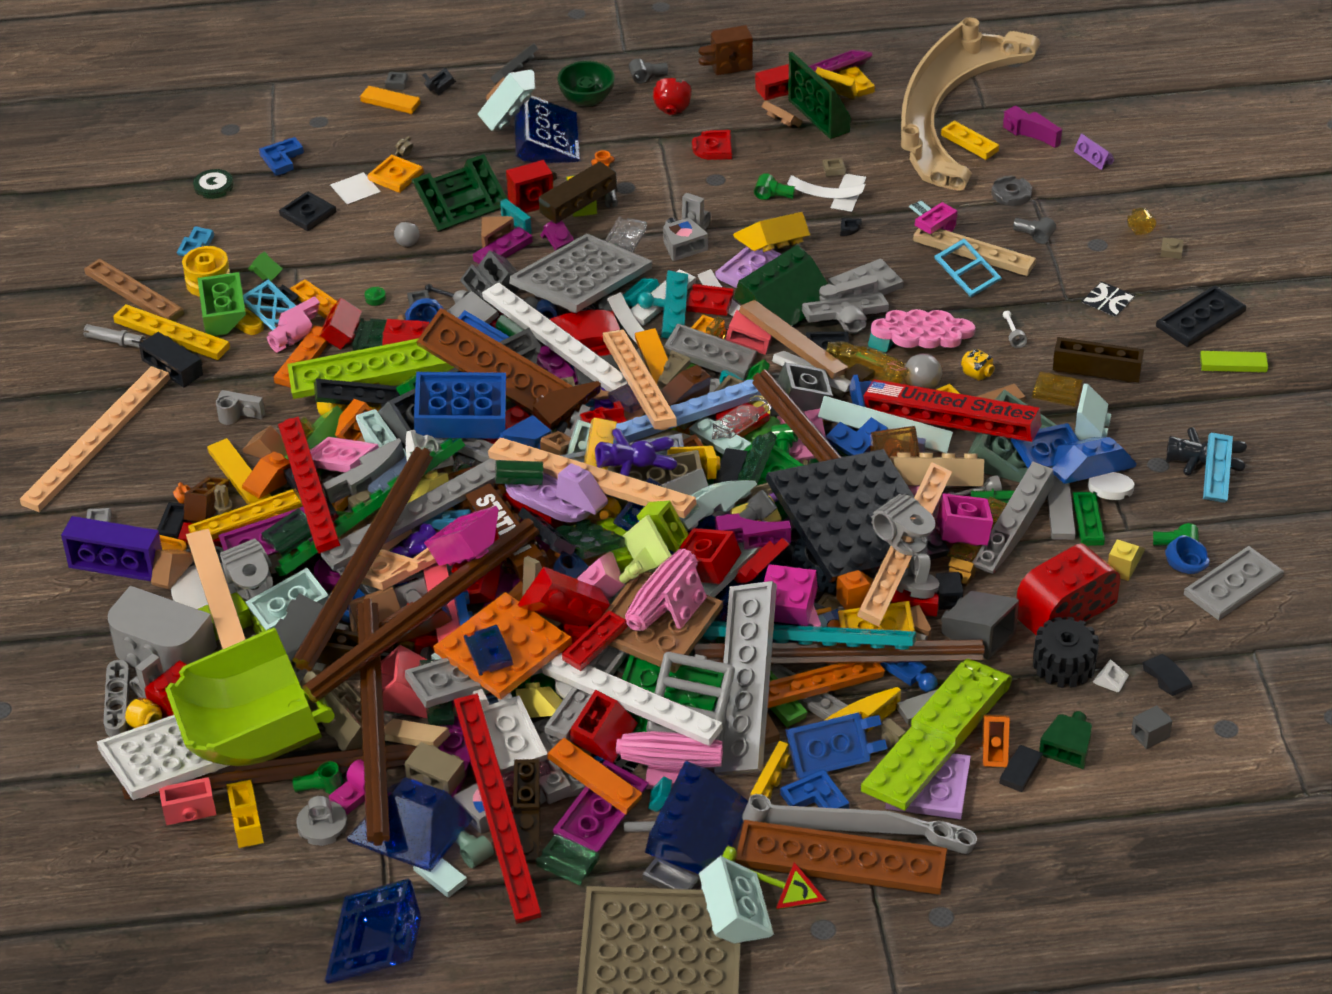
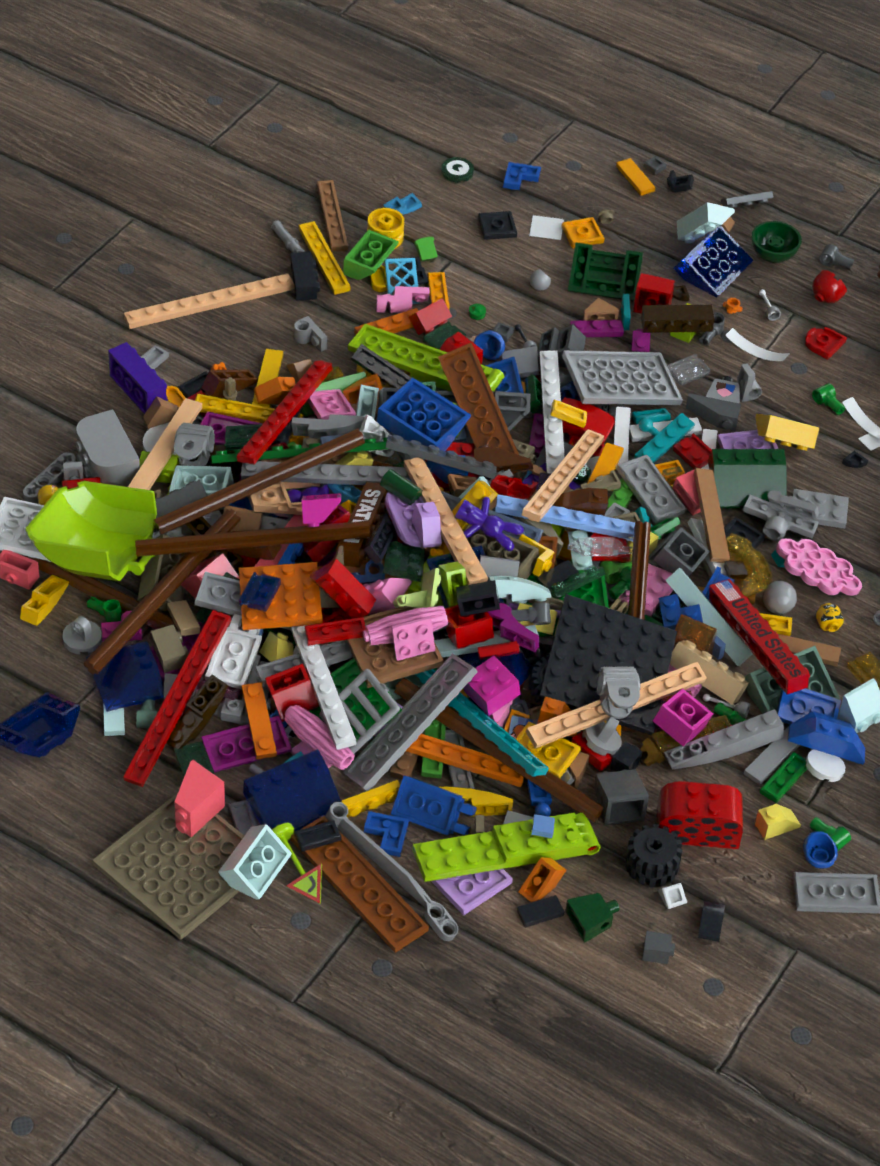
camera: 35 degrees right, 5 degrees up
(511, 428) = (447, 458): none -> dark grey plate
(575, 327) = (568, 413): none -> yellow tile
(621, 881) = (198, 799): none -> coral slope
(644, 144) = (771, 309): none -> light grey hinge
(663, 186) = (749, 347): none -> white sticker
(690, 254) = (715, 411): none -> dark grey slope
(704, 521) = (478, 598): none -> black brick
(762, 840) = (317, 836): none -> black tile
(956, 688) = (543, 826): none -> medium blue tile

